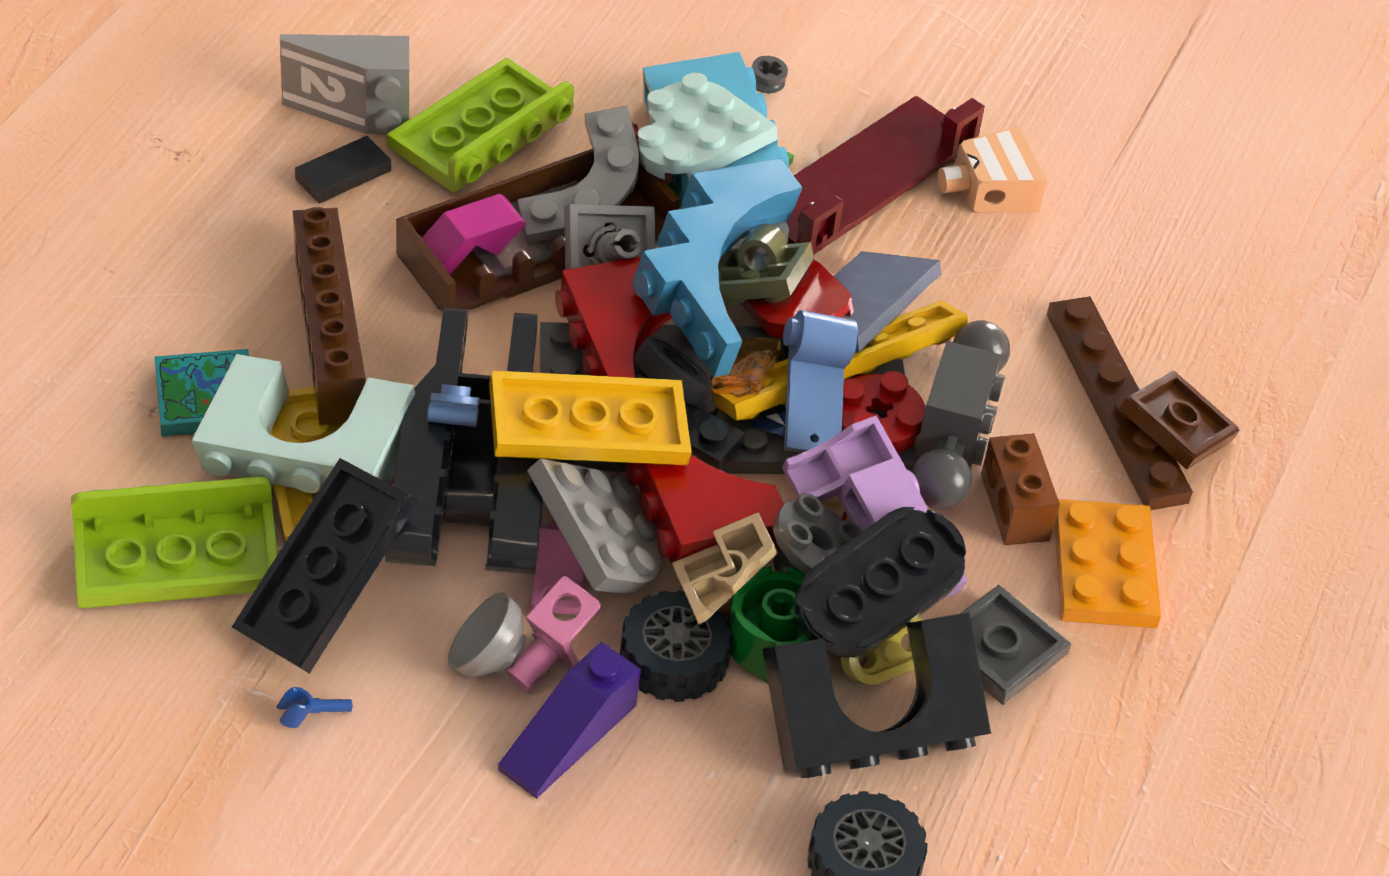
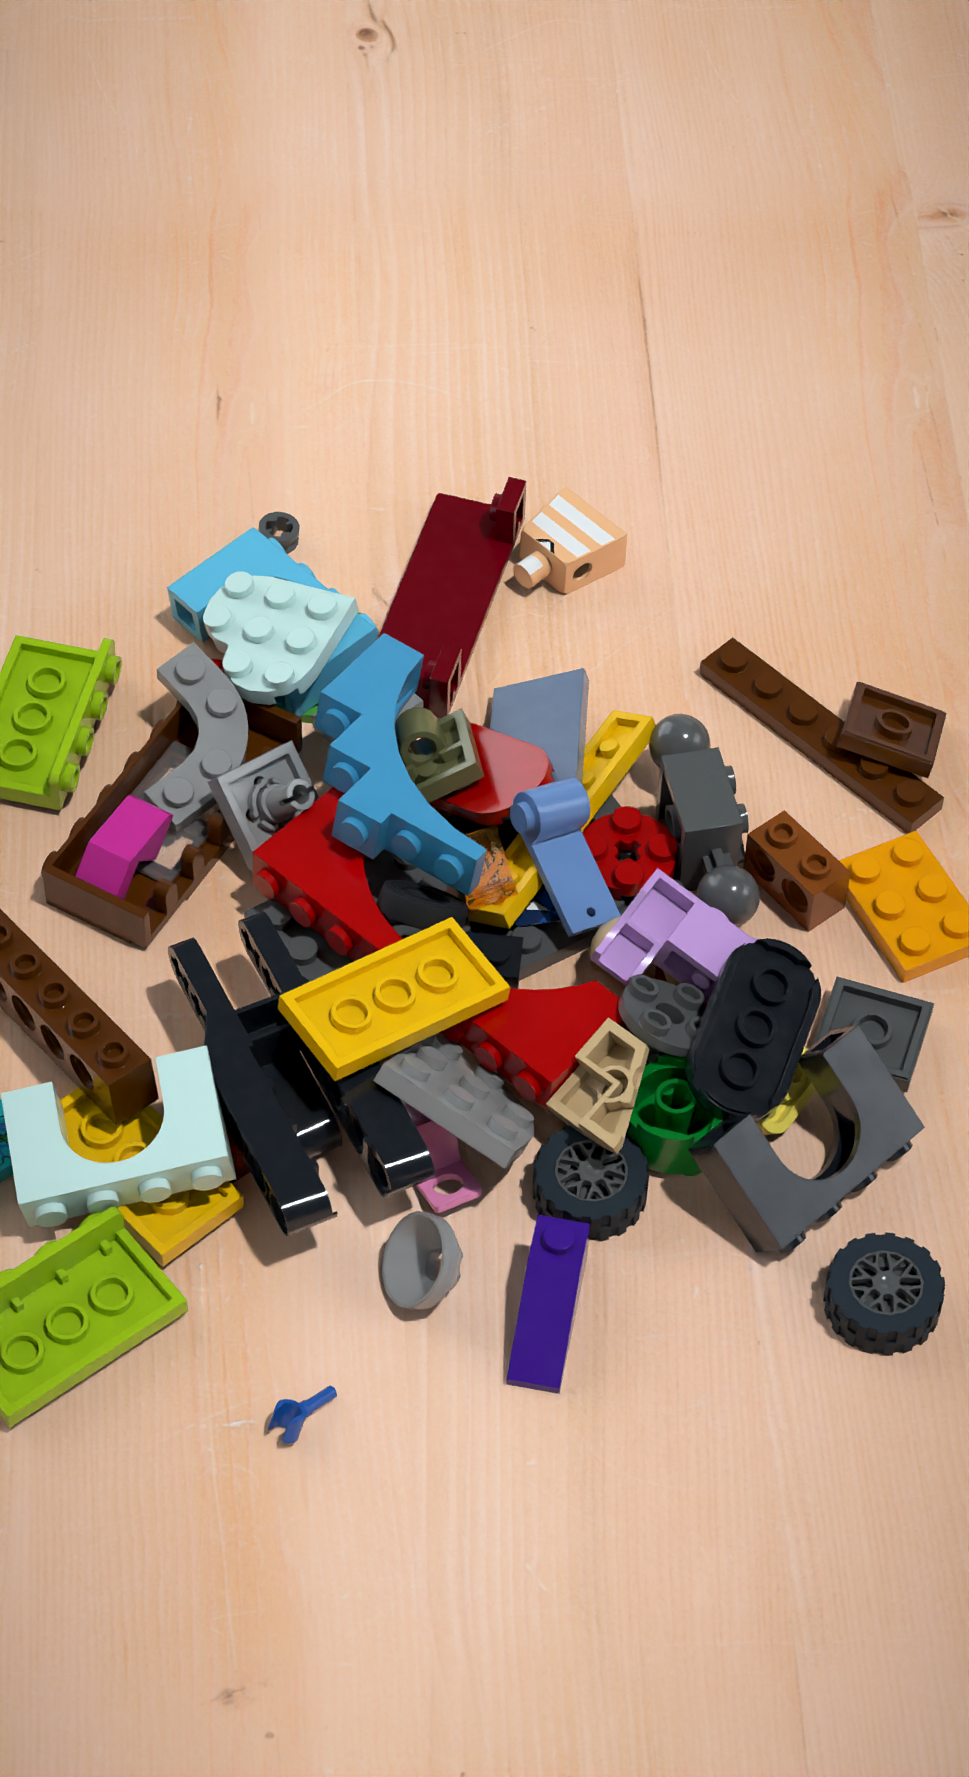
camera: 25 degrees left, 5 degrees up
(324, 565) = (235, 1267): black tile -> none
(454, 406) = (261, 1048): medium blue plate -> none
(552, 635) = (483, 1231): bright pink bracket -> none

